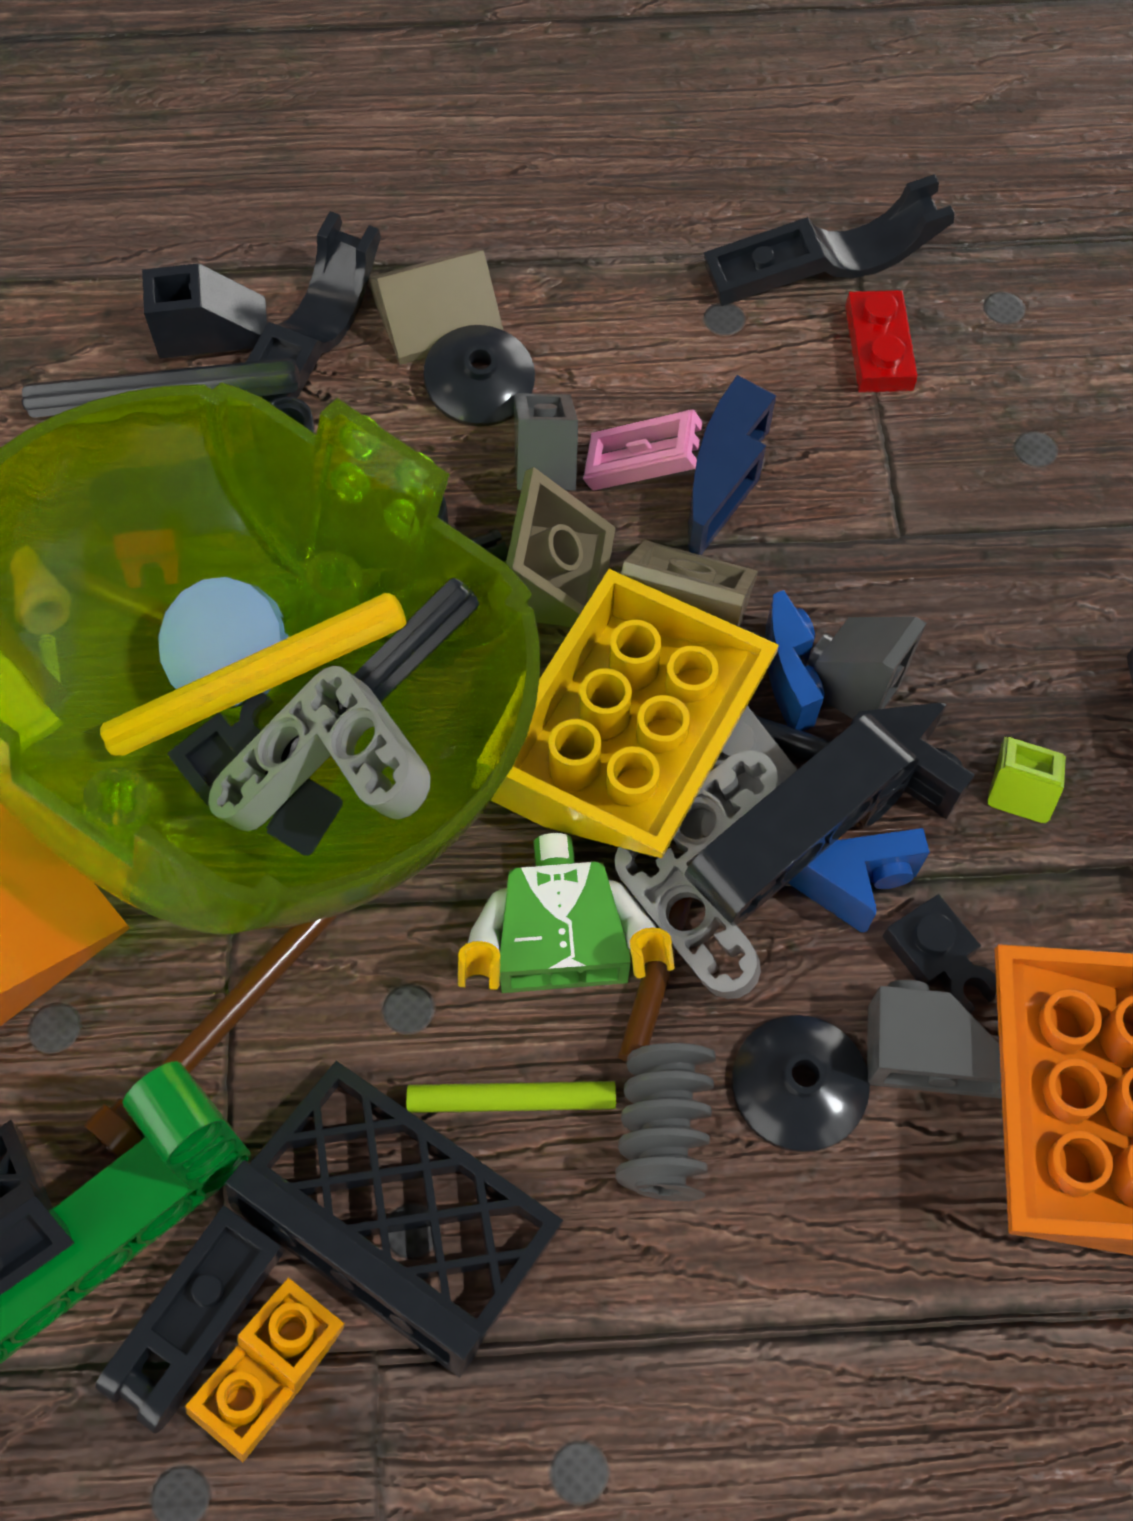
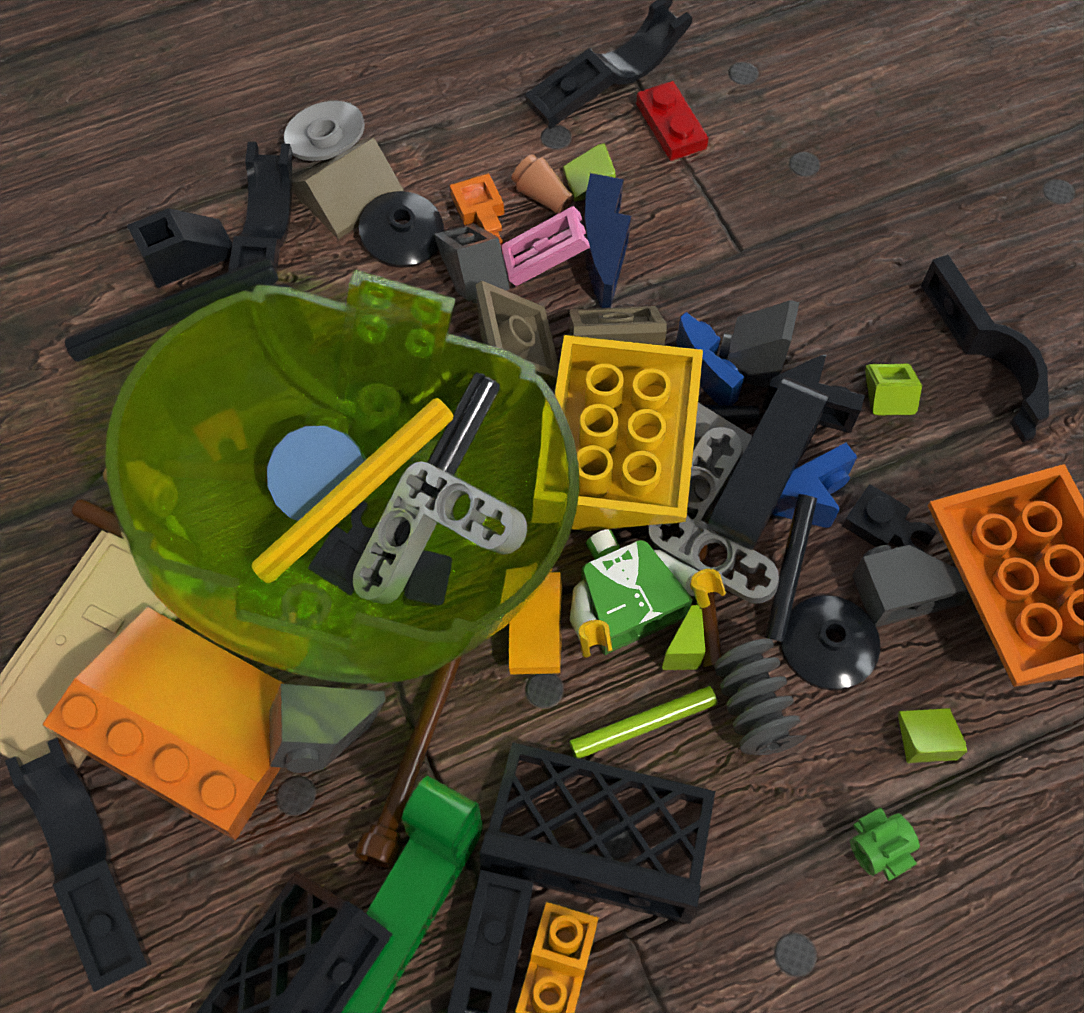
camera: 20 degrees left, 0 degrees up
(105, 951) = (318, 724): none -> dark grey slope
(425, 924) = (537, 633): none -> light orange slope
(434, 225) = (324, 130): none -> light grey dish
(586, 372) = (479, 203): none -> orange plate
(604, 1016) = (688, 644): none -> lime slope
(674, 370) = (540, 183): none -> nougat cone
(750, 363) = (578, 171): none -> lime slope
(750, 1375) = (884, 844): none -> bright green gear
(781, 967) = (791, 567): none -> black bar
(880, 1255) = (931, 736): none -> lime slope

